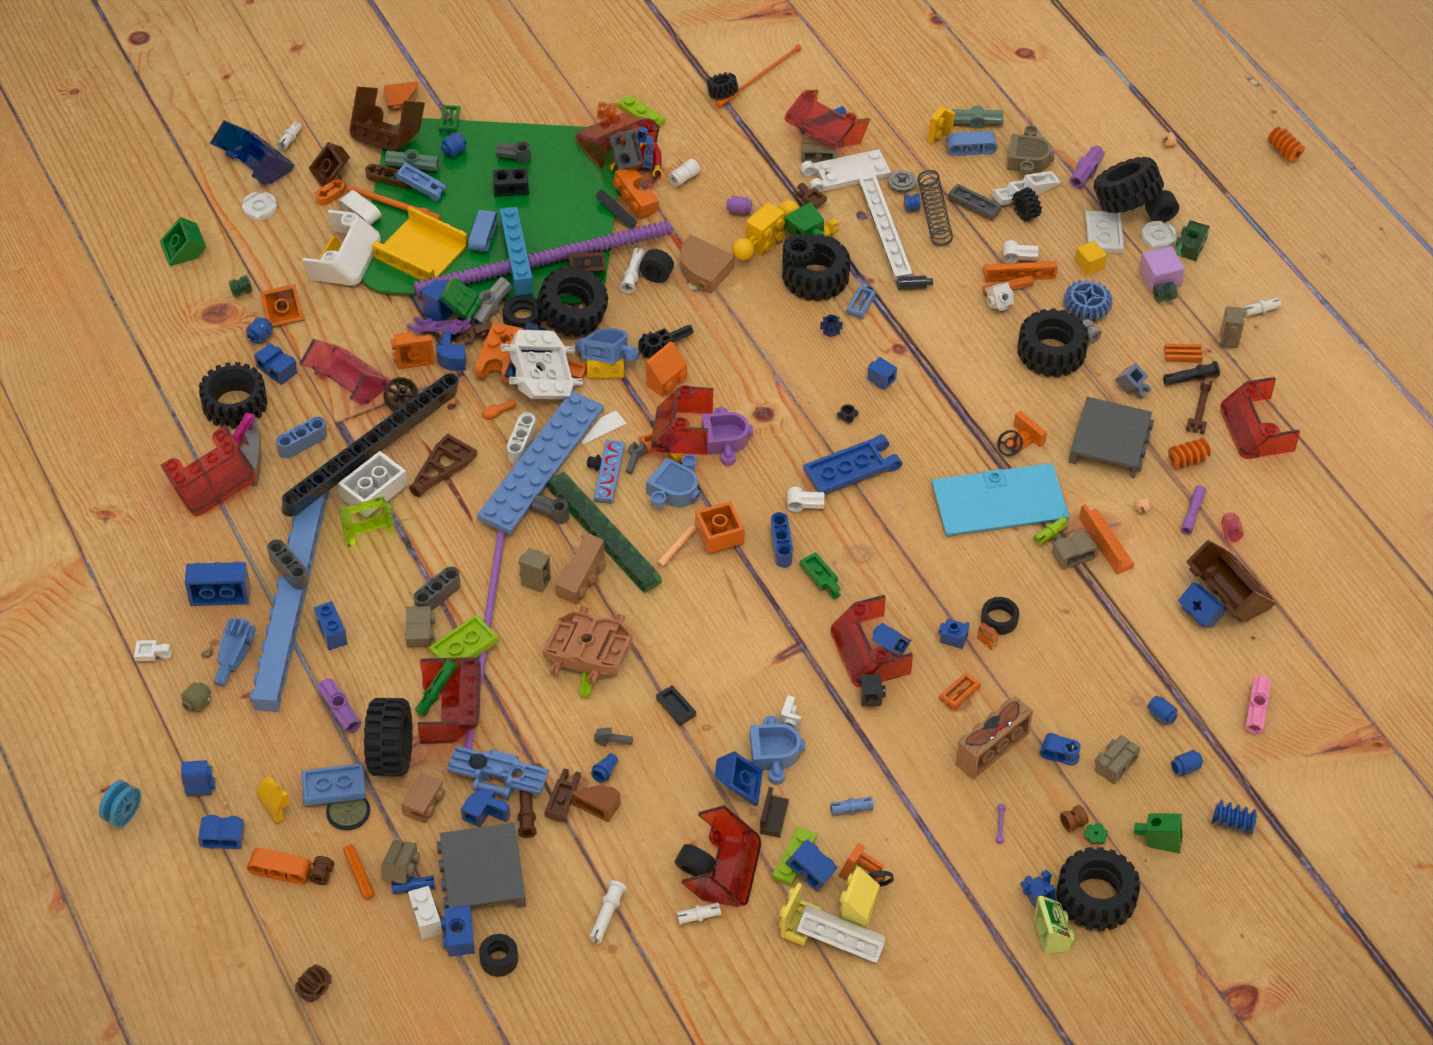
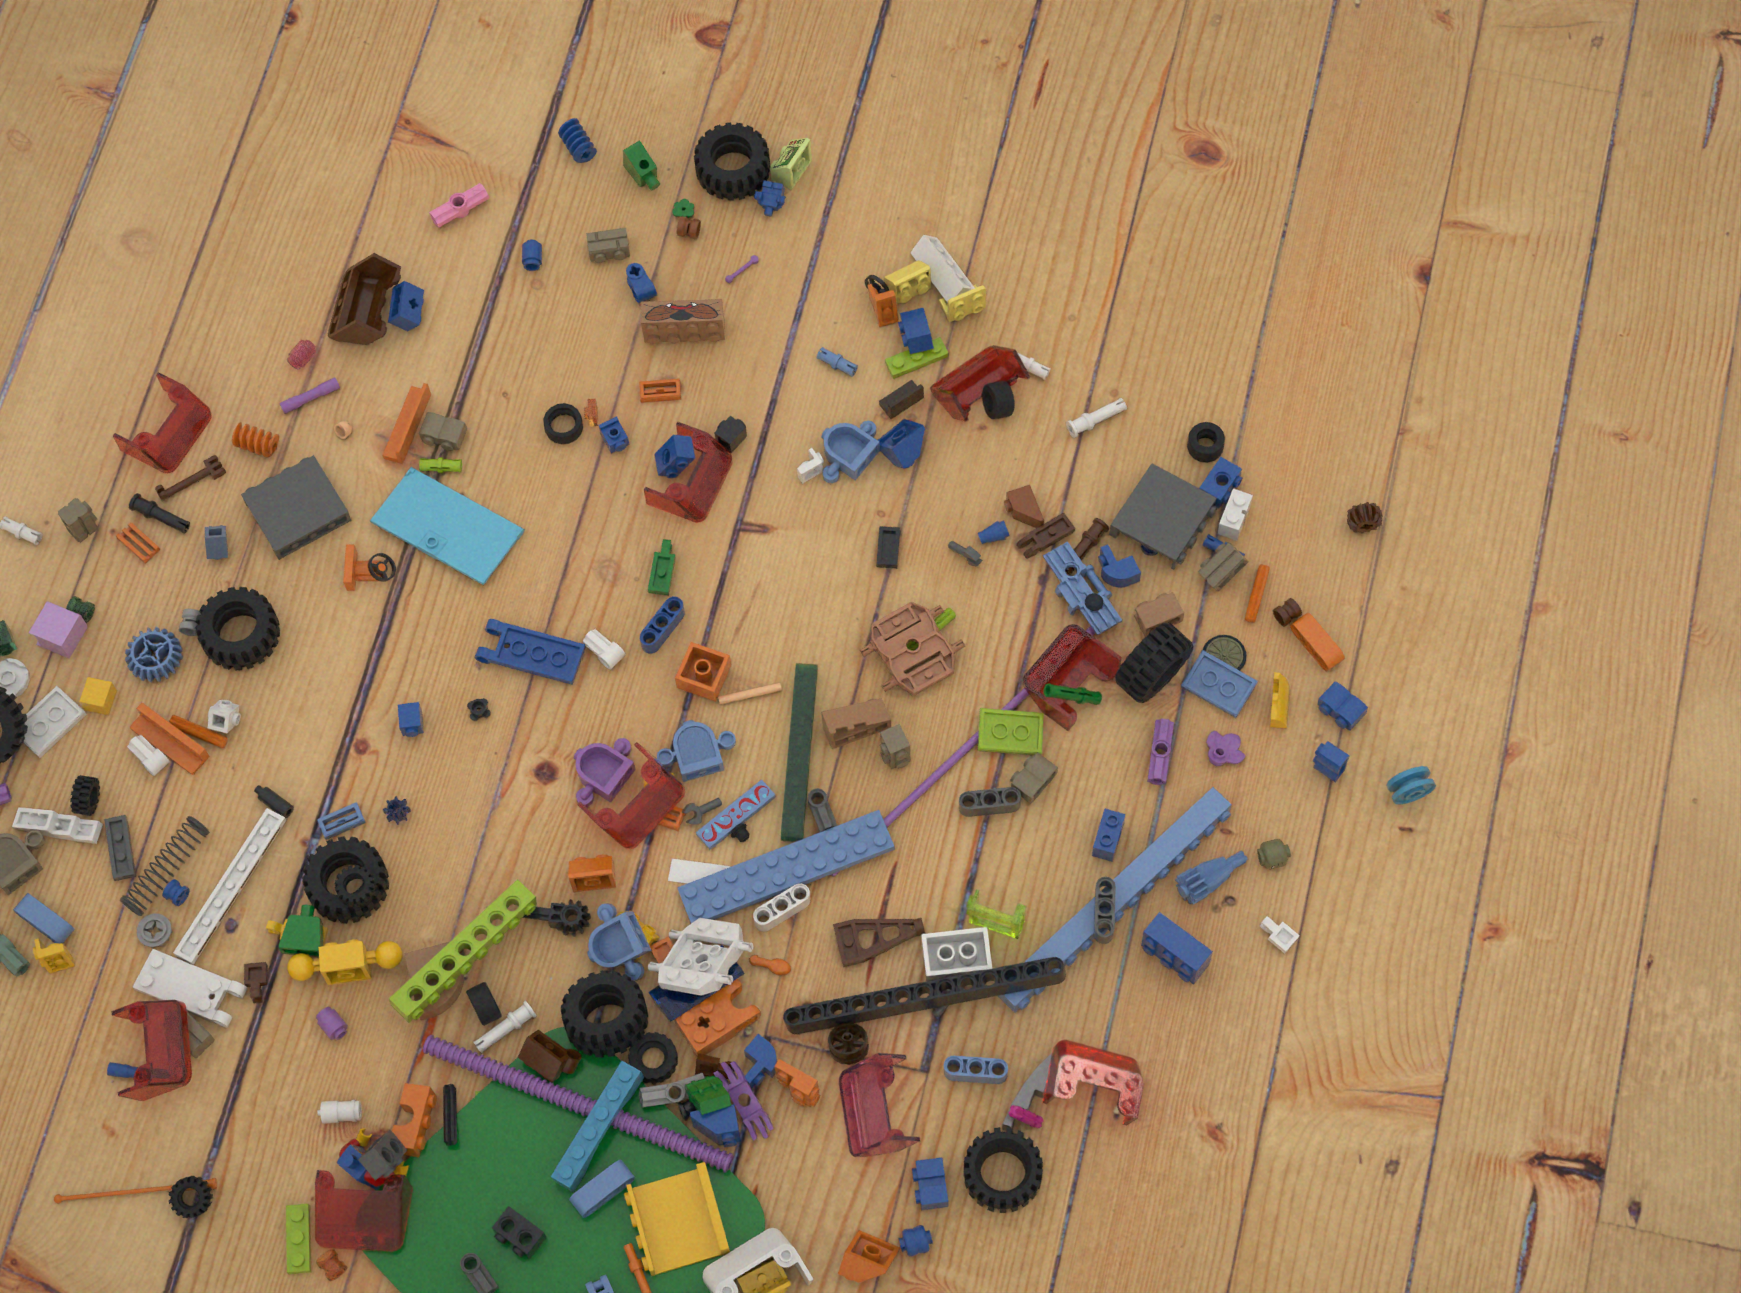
camera: 135 degrees left, 15 degrees up
(293, 745) = (1225, 746): none -> medium lavender plate
(695, 274) = (515, 894): none -> lime brick
(1187, 763) = (562, 204): blue brick -> none

